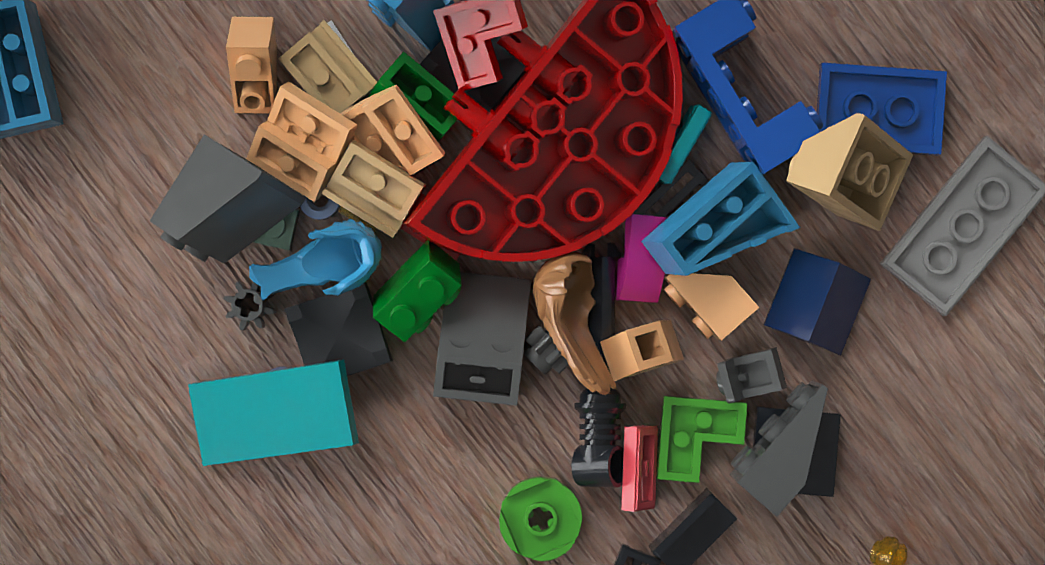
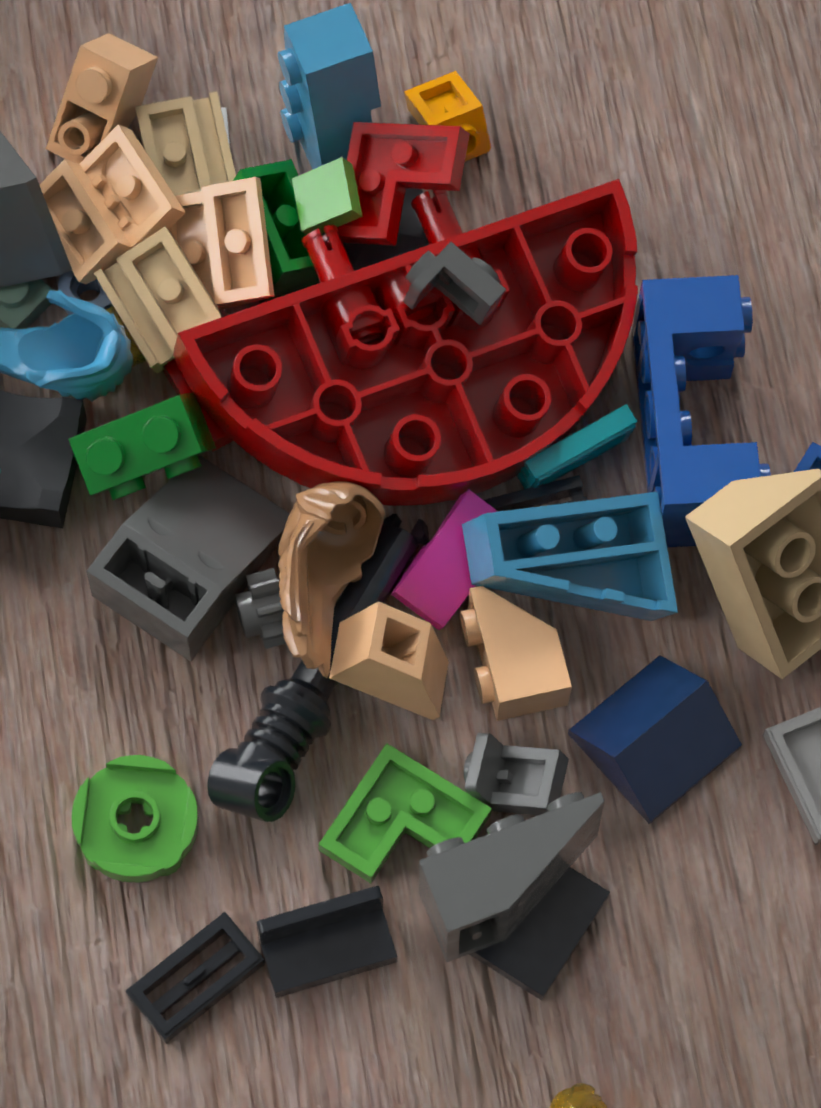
camera: 25 degrees right, 20 degrees down
(443, 71) = (327, 196): none -> tile
(570, 91) = (463, 280): none -> dark grey bracket
(639, 467) = (302, 818): coral tile -> none

